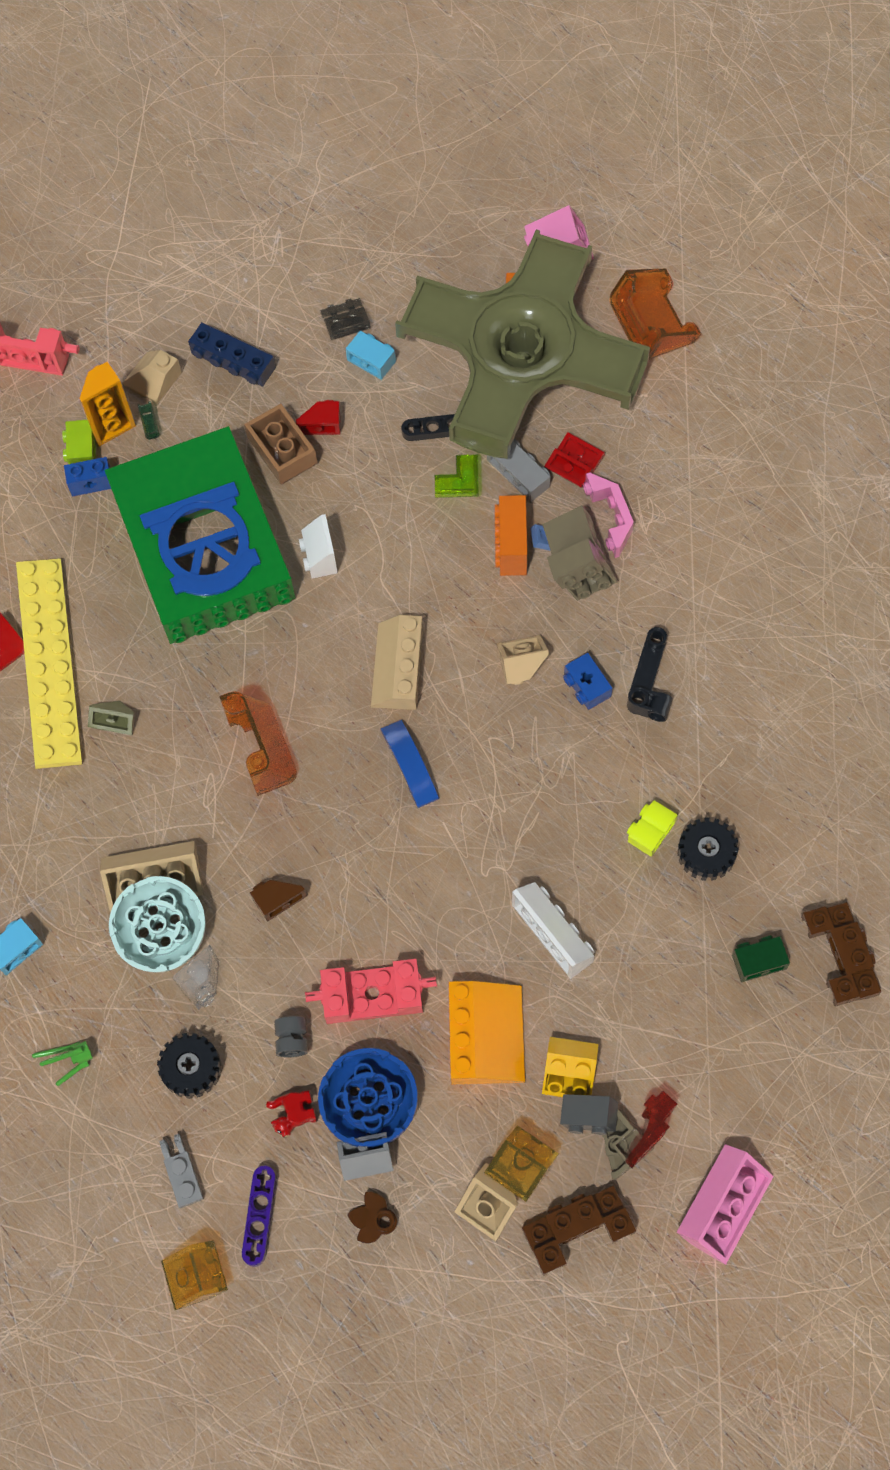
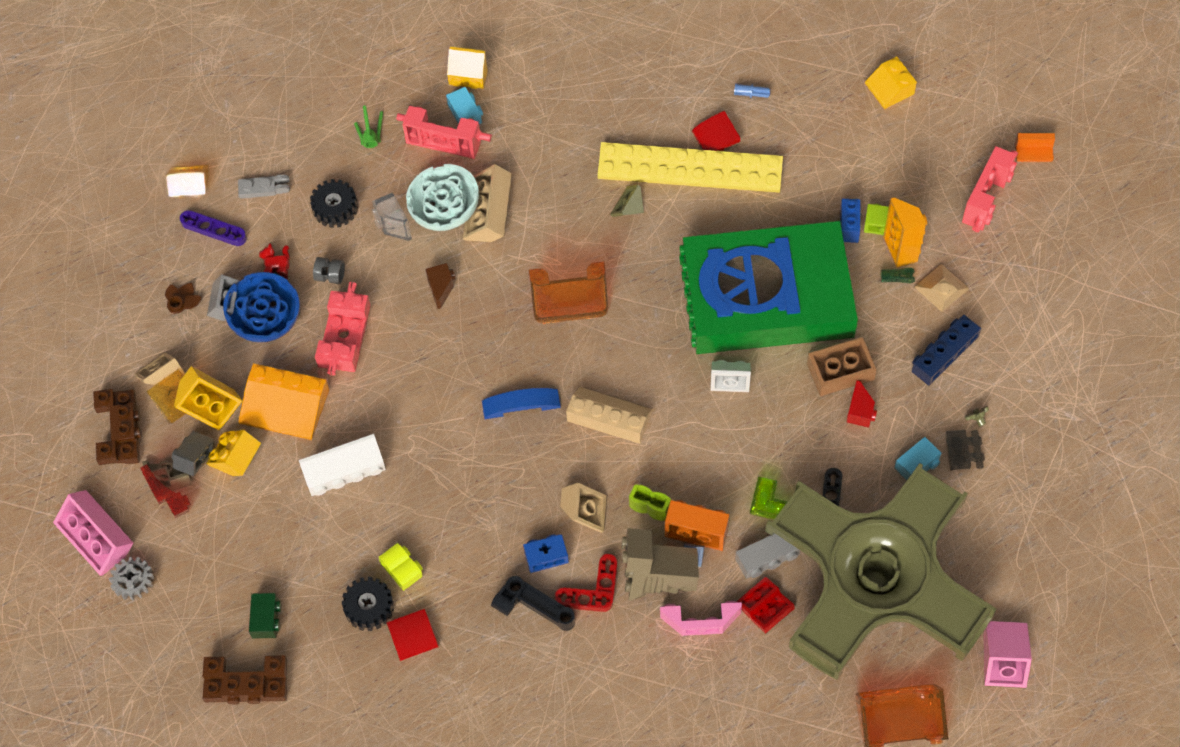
camera: 105 degrees right, 5 degrees down
(58, 990) = (460, 141): none -> coral brick
(301, 313) = (978, 415): none -> olive plant
(498, 589) = (645, 501): none -> lime brick
(516, 1115) = (206, 398): none -> yellow slope
(613, 618) = (600, 592): none -> red beam
(725, 792) = (412, 634): none -> red slope
(771, 1141) = (131, 578): none -> light grey gear

